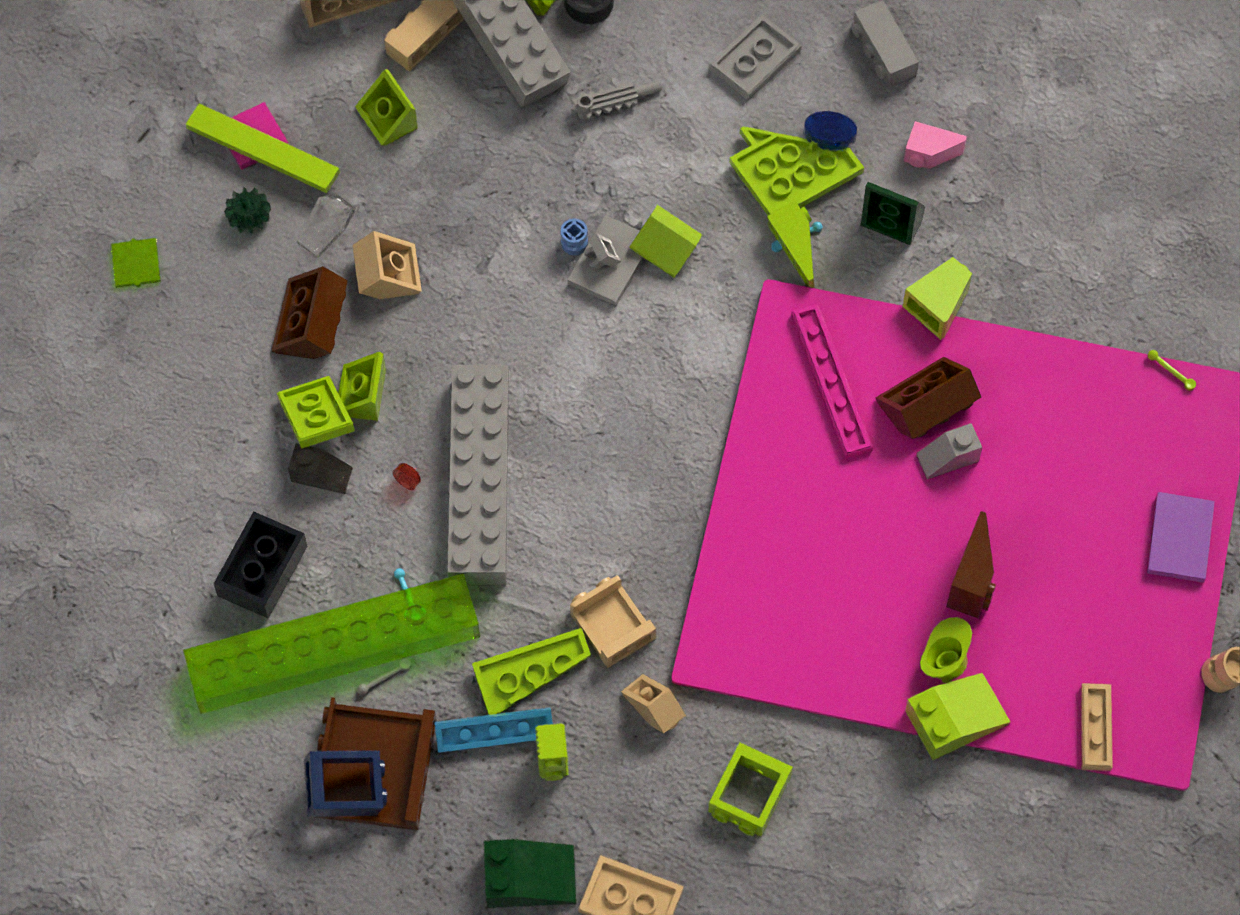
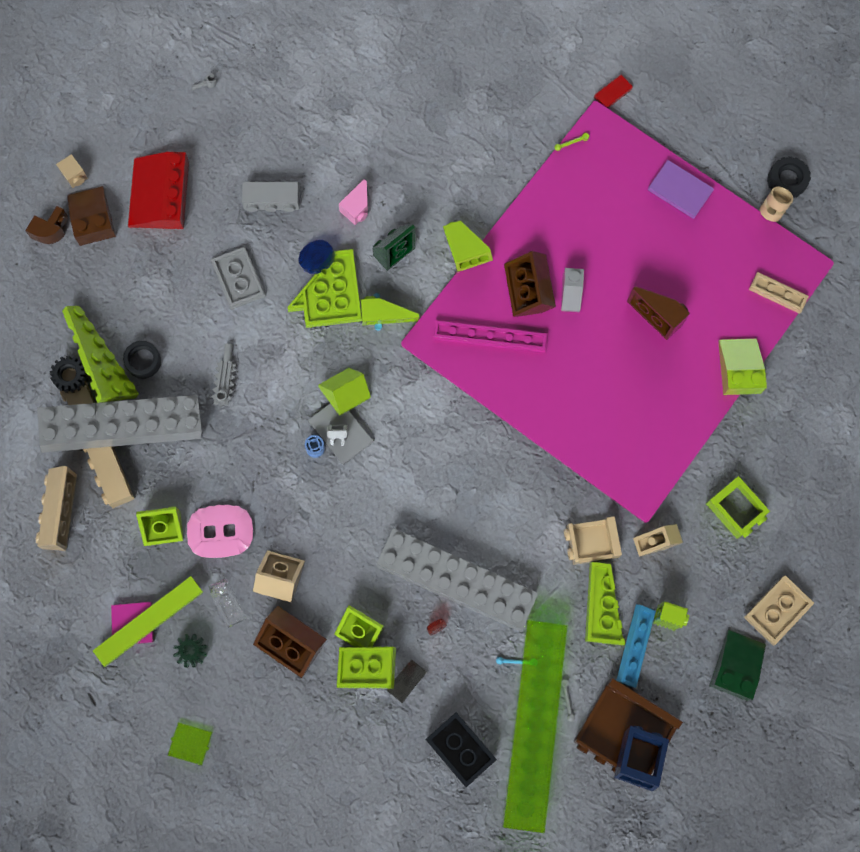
camera: 70 degrees left, 10 degrees up
(395, 188) = (219, 517): none -> bright pink piece
(947, 650) = (702, 351): lime piece -> none

